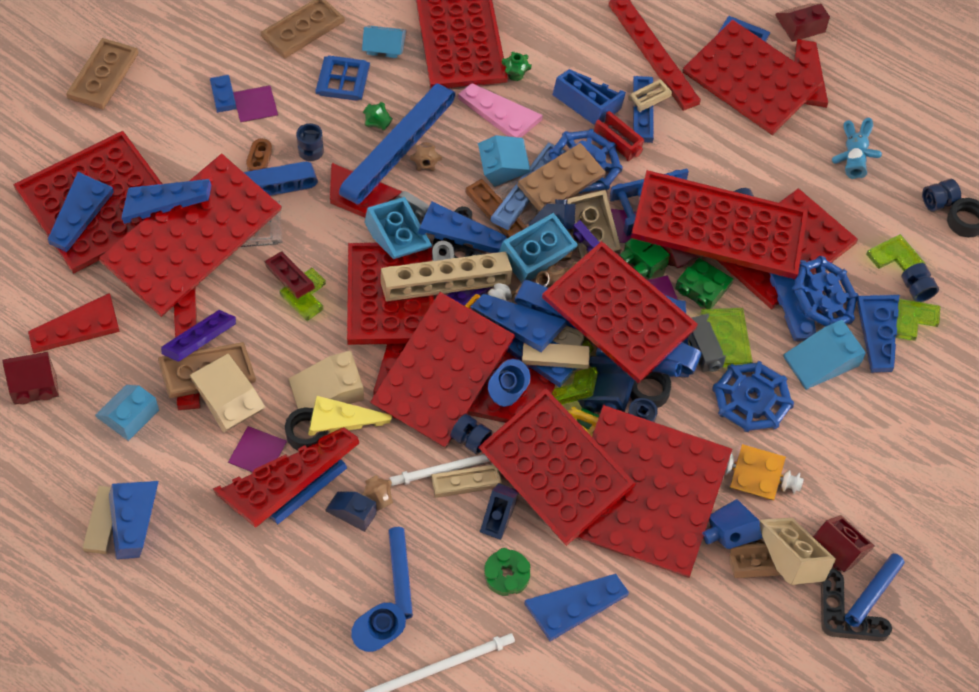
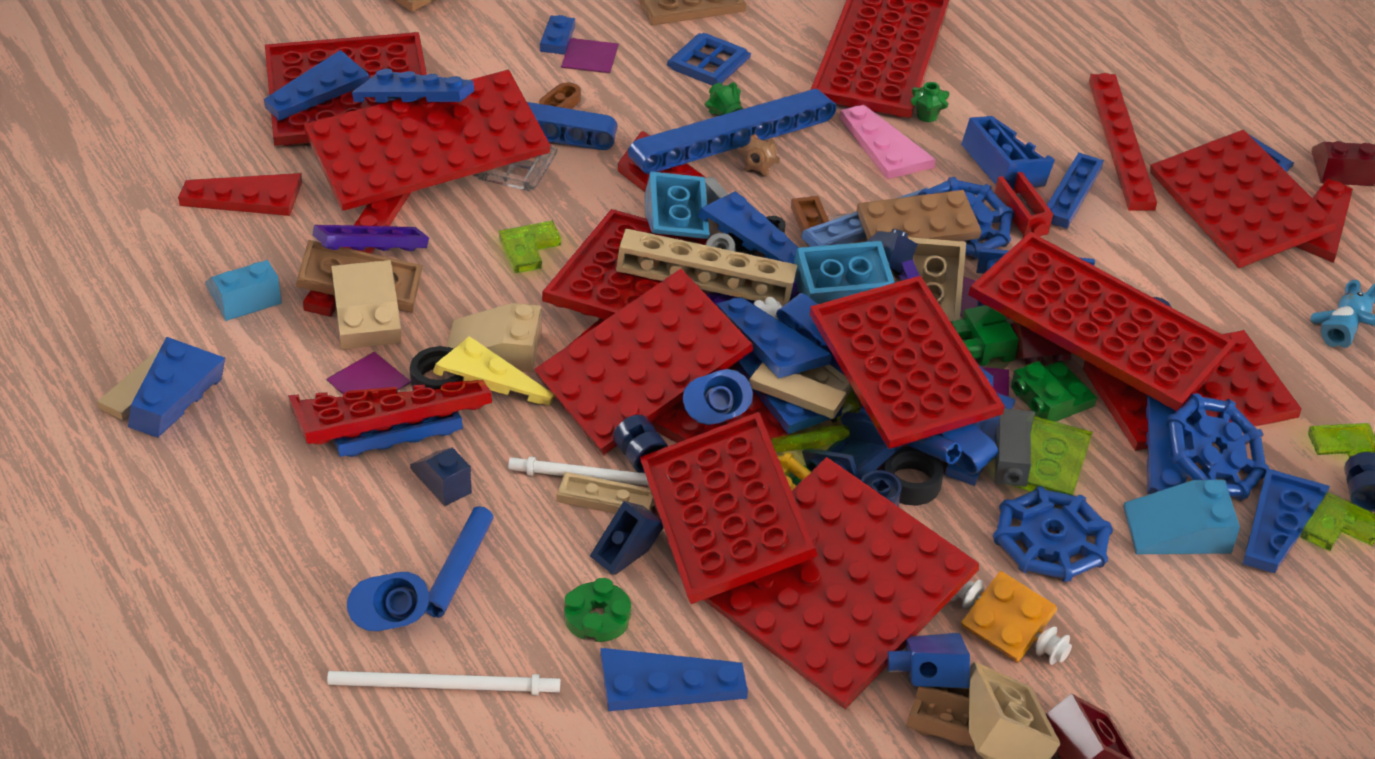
camera: 25 degrees right, 15 degrees down
(31, 378) = (154, 217): dark red slope -> none
(289, 274) = (519, 216): dark red plate -> none
(310, 142) = (627, 101): dark blue wheel -> none
(378, 491) = (485, 464): medium nougat rock -> none
(383, 40) = (779, 33): dark azure slope -> none
(503, 158) = (854, 180): dark azure slope -> none
(652, 97) = (1088, 175): tan tile -> none

